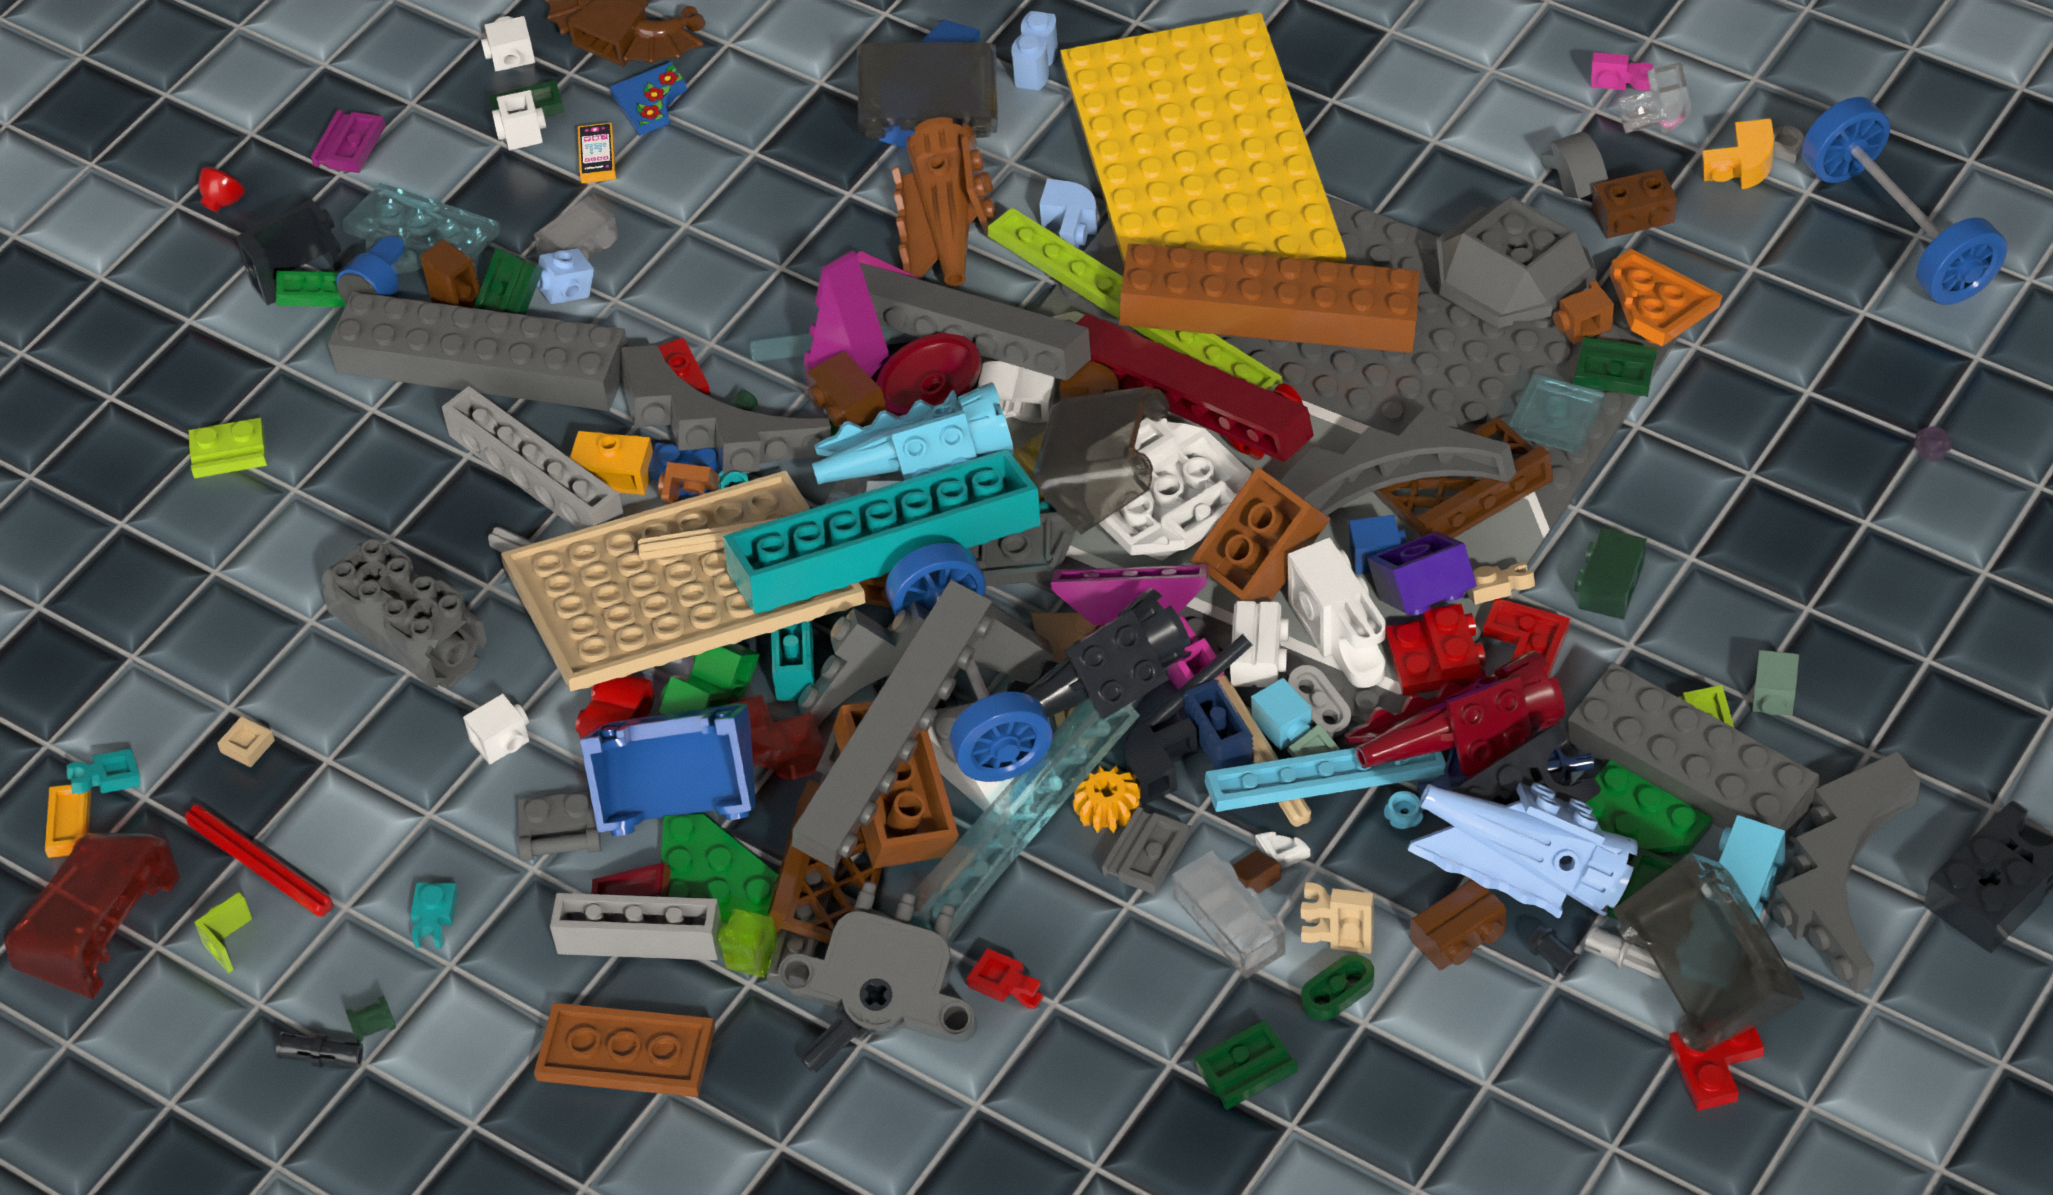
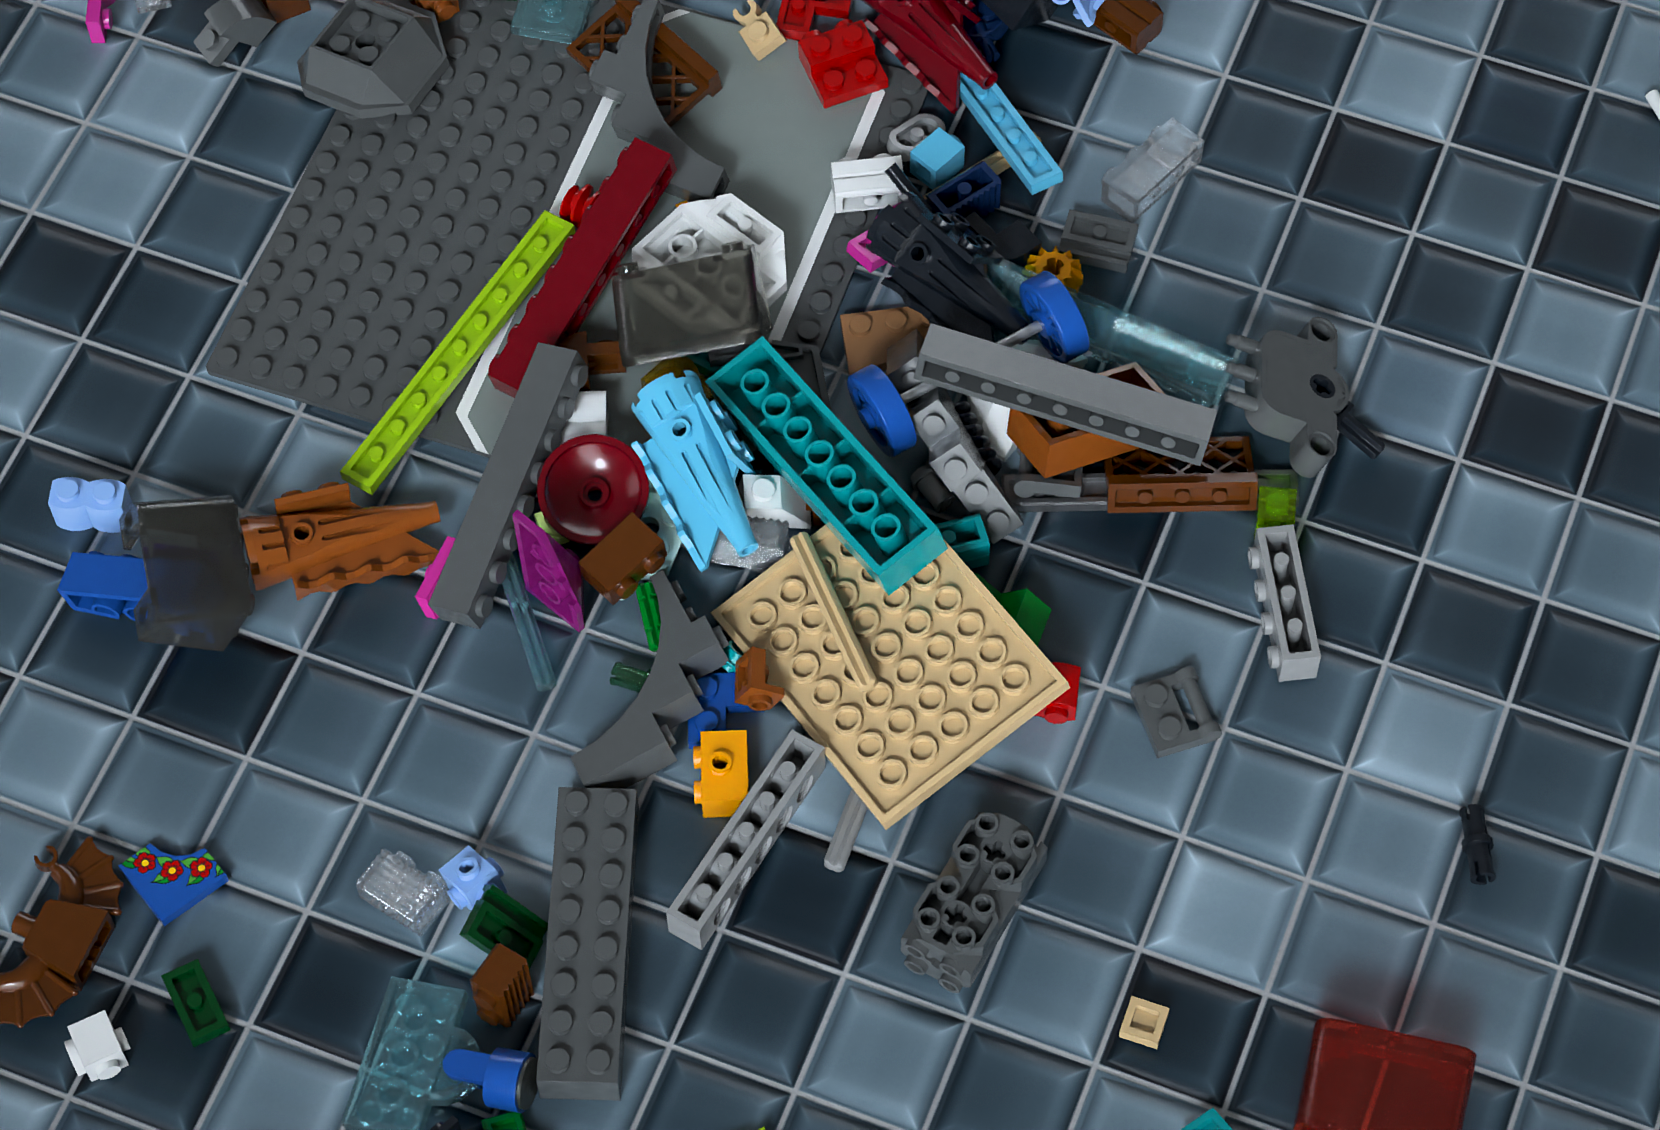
camera: 105 degrees left, 10 degrees up
(220, 923) = (1367, 976): lime bracket -> none
(259, 860) = (1278, 970): red axle -> none
(370, 1019) = (1434, 808): clear green bush -> none
(431, 907) = (1292, 798): teal plate -> none
(497, 728) = (1081, 789): white brick -> none
(518, 120) = (236, 992): white brick -> none
(596, 153) = (263, 912): tile -> none
(625, 1049) = (1406, 592): dark orange plate -> none
(643, 881) = (1240, 627): dark red tile -> none
(670, 767) = (1100, 603): blue windscreen -> none
(682, 362) = (558, 754): red plate -> none
(714, 866) = (1198, 574): green plate -> none
(787, 746) = (1043, 560): clear red brick -> none
(1000, 976) = (1257, 320): red plate -> none
(1068, 209) = (325, 427): light blue brick -> none
(1106, 591) = (825, 276): magenta wedge -> none
(1201, 143) = (235, 334): yellow plate -> none
(1245, 1064) = (1294, 138): dark green plate -> none
(1256, 534) = (767, 176): dark orange brick -> none
(1258, 871) = (1097, 160): reddish brown slope -> none
(1269, 298) = (455, 227): dark orange brick -> none
(1282, 848) = (1069, 151): white tile -> none
(1313, 742) = (969, 133): sand green plate -> none
(1333, 987) = (1205, 88): dark green plate -> none
(1337, 611) = (829, 120): white brick -> none
(1349, 914) = (1149, 85): tan plate -> none
(1371, 537) = (733, 117): blue brick -> none
(1403, 802) = (1012, 62): medium azure plate -> none
(1422, 573) = (775, 65): dark purple brick -> none

